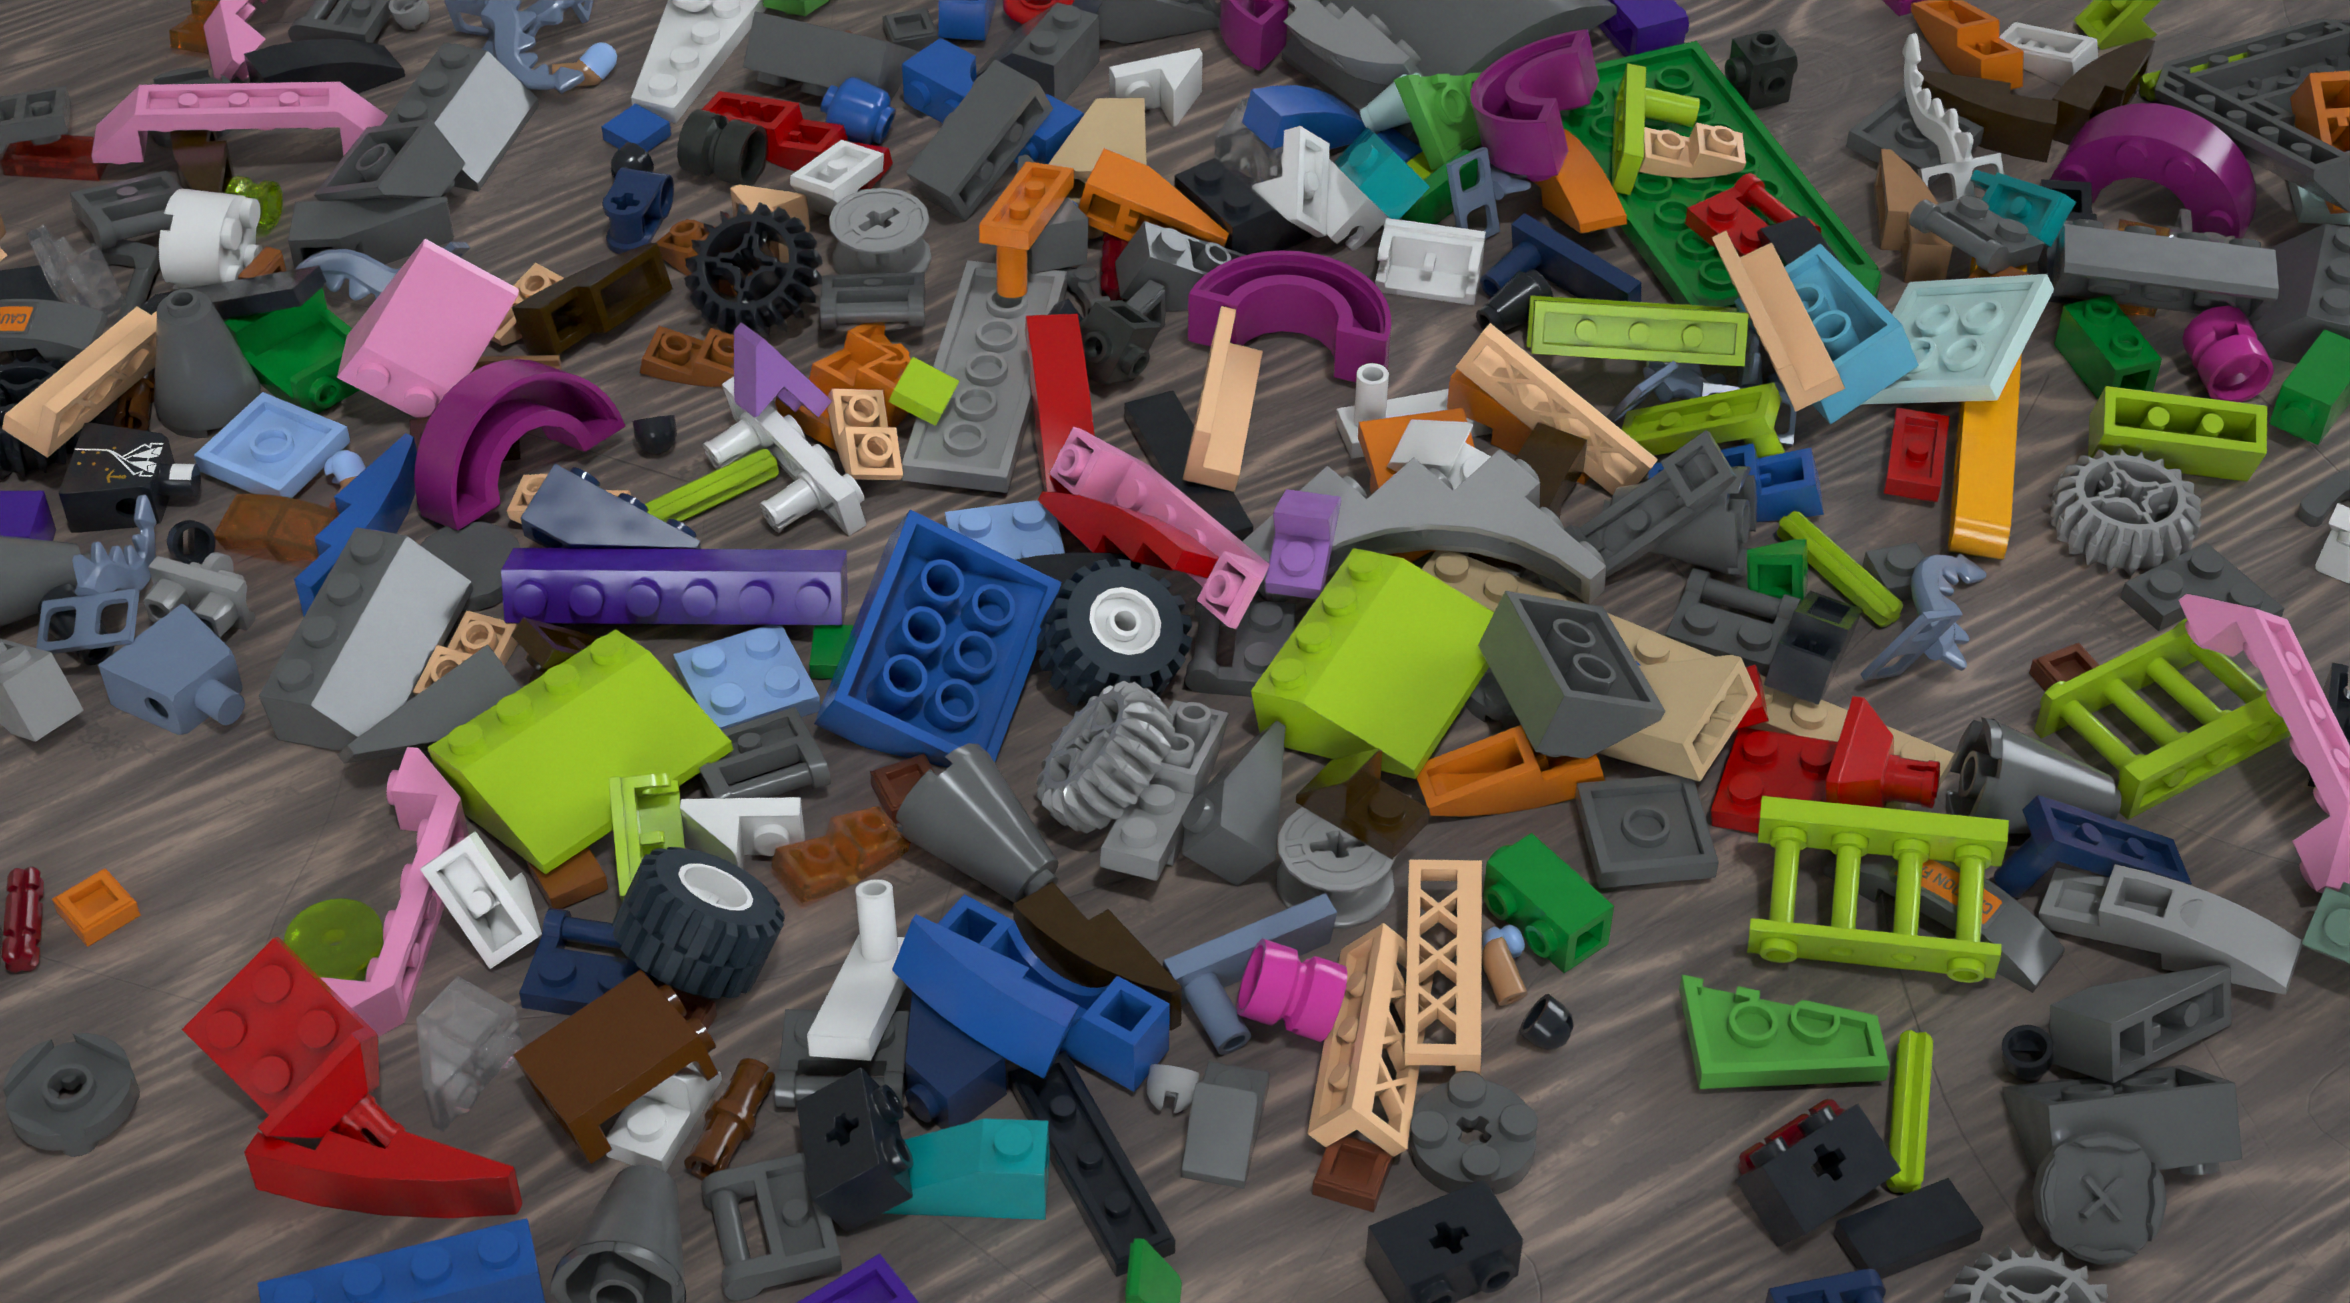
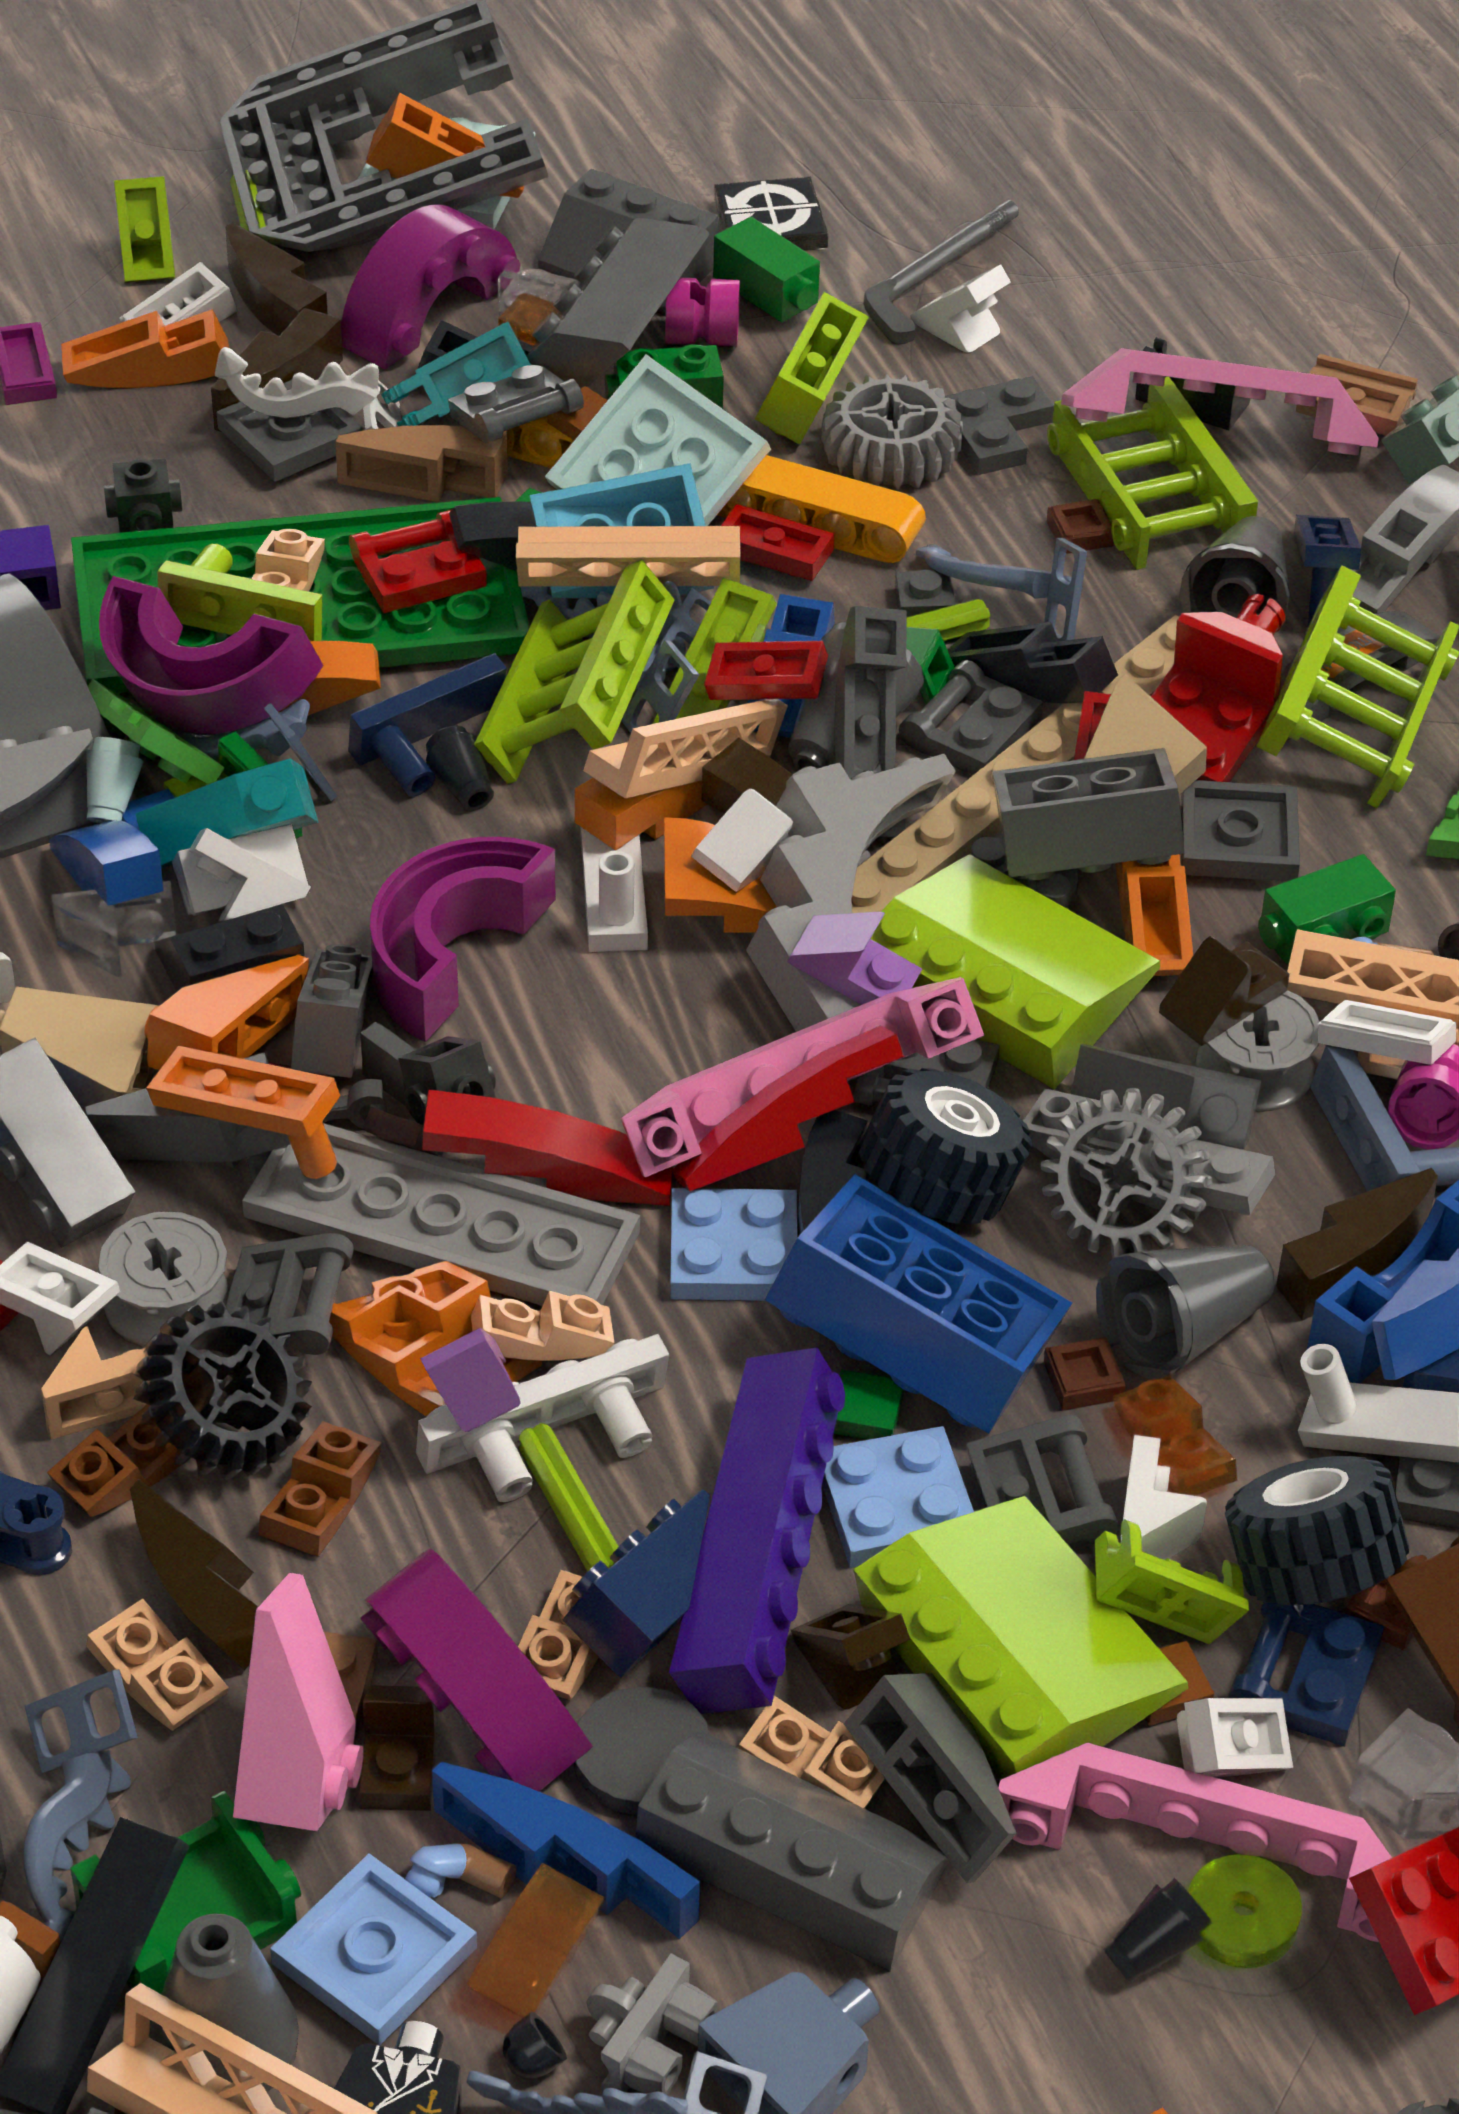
camera: 80 degrees left, 0 degrees up
(298, 877) = (1157, 1931): none -> black cone
(655, 433) = (454, 1536): black hinge -> none
(923, 391) = (496, 1255): lime tile -> none
(1165, 437) = (625, 1074): black tile -> none
(1223, 409) = (572, 1015): light nougat fence -> none
(1340, 928) = (1387, 1032): none -> white tile
(1430, 261) = (370, 819): white hinge -> none
(1668, 429) = (766, 670): none -> red plate

